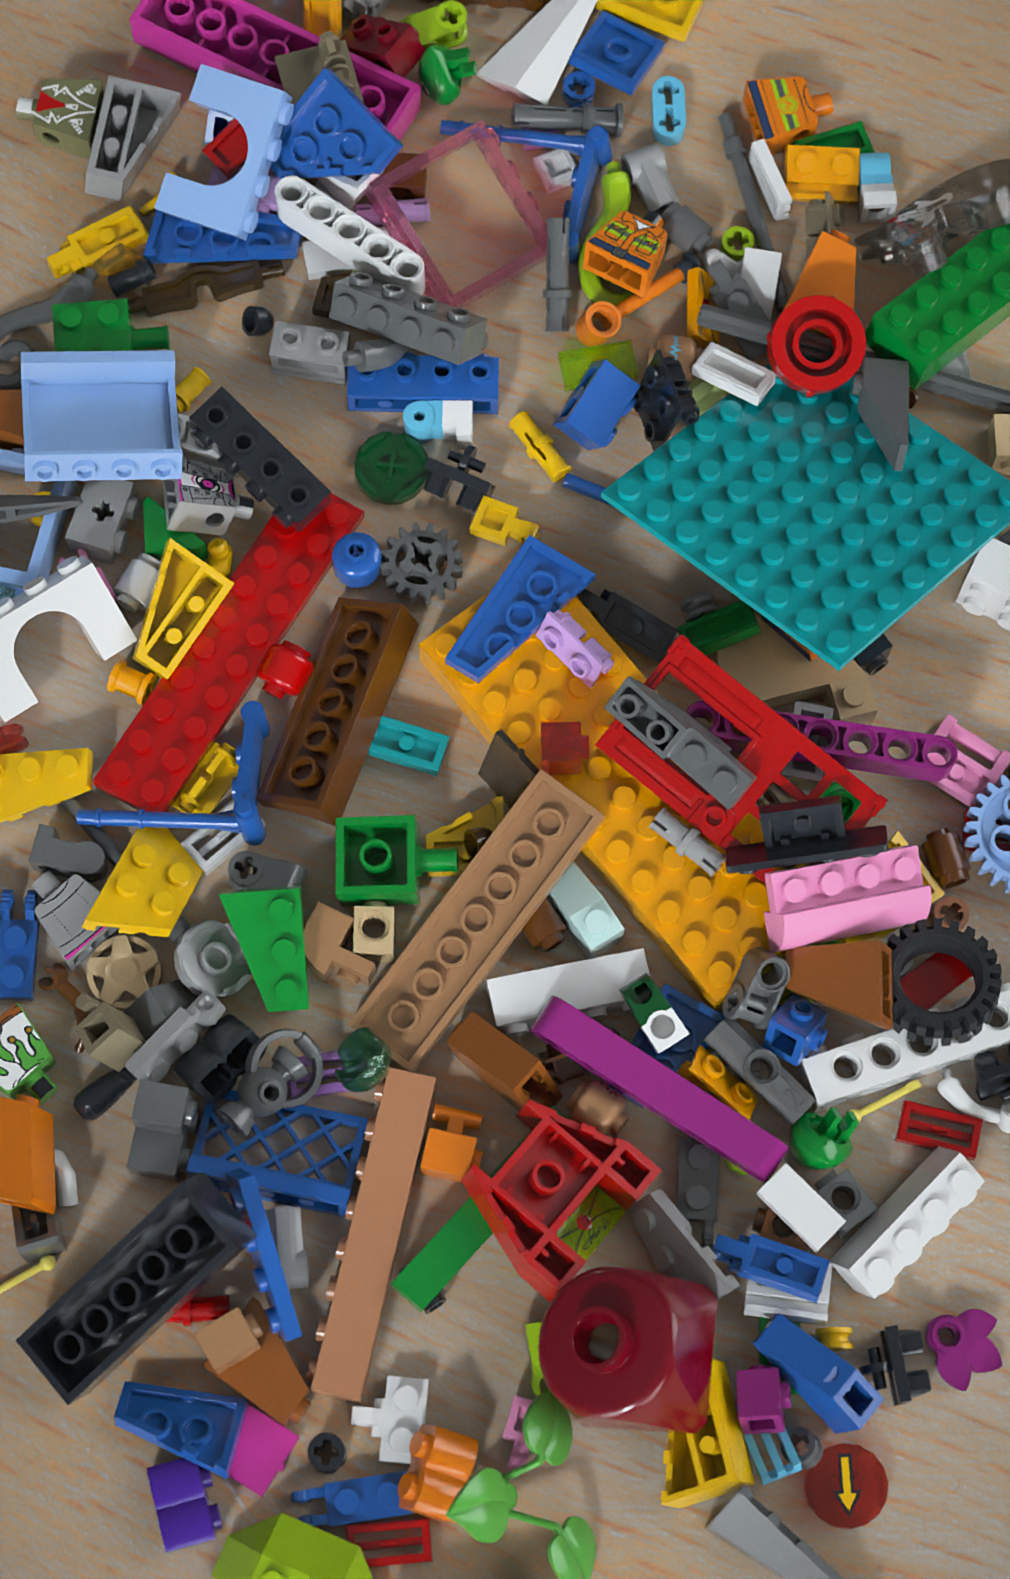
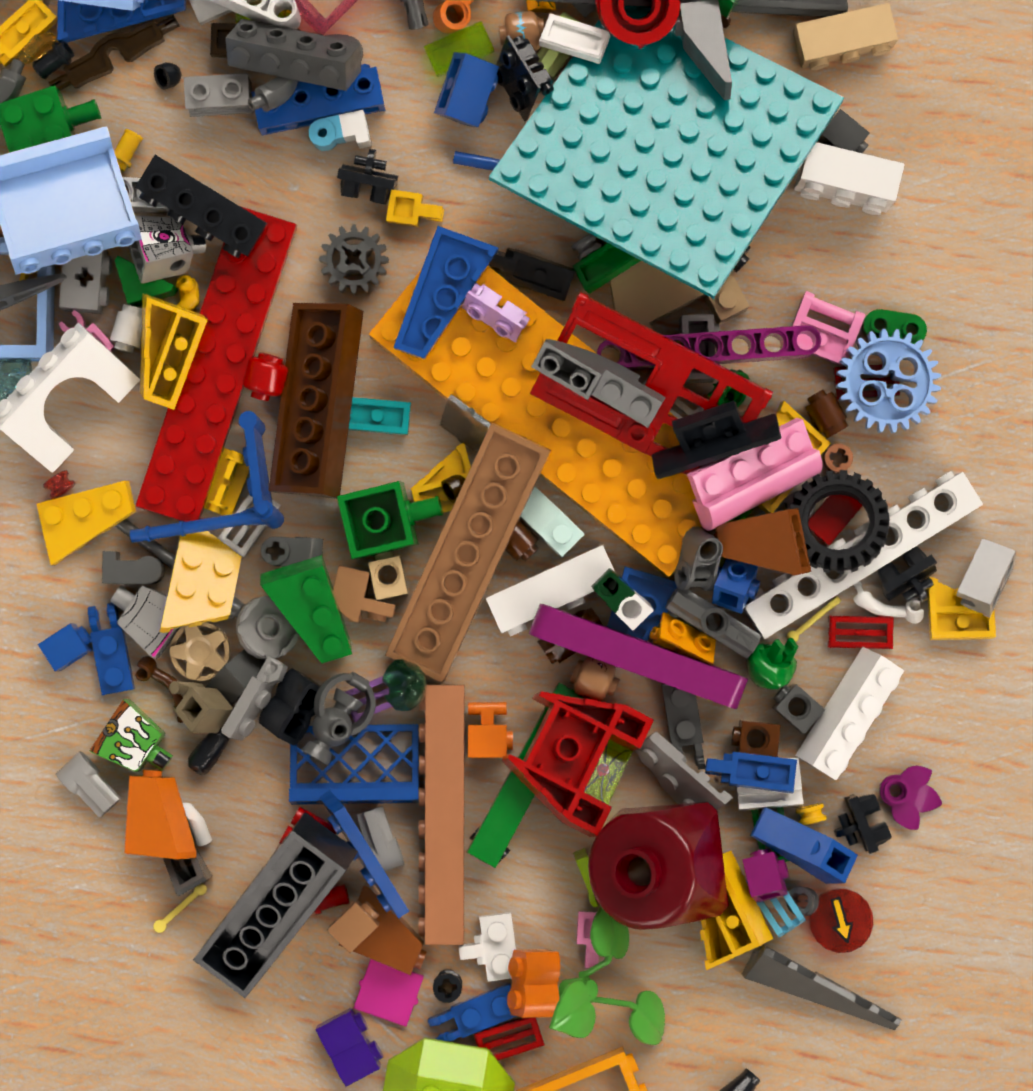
camera: 10 degrees left, 15 degrees up
(131, 682) = (144, 414): light orange bush -> none
(162, 1124) = (261, 774): dark grey brick -> none
(185, 1422) = (335, 988): blue wing -> none
(357, 559) = (304, 280): blue head -> none
(391, 468) = (309, 179): dark green tile -> none
(502, 1063) = (513, 661): dark orange slope -> none
(539, 446) = (427, 133): yellow pin -> none
(562, 748) = (504, 402): clear red brick -> none
(688, 842) = (620, 455): light grey pin -> none
(801, 1207) = (766, 724): white tile -> none

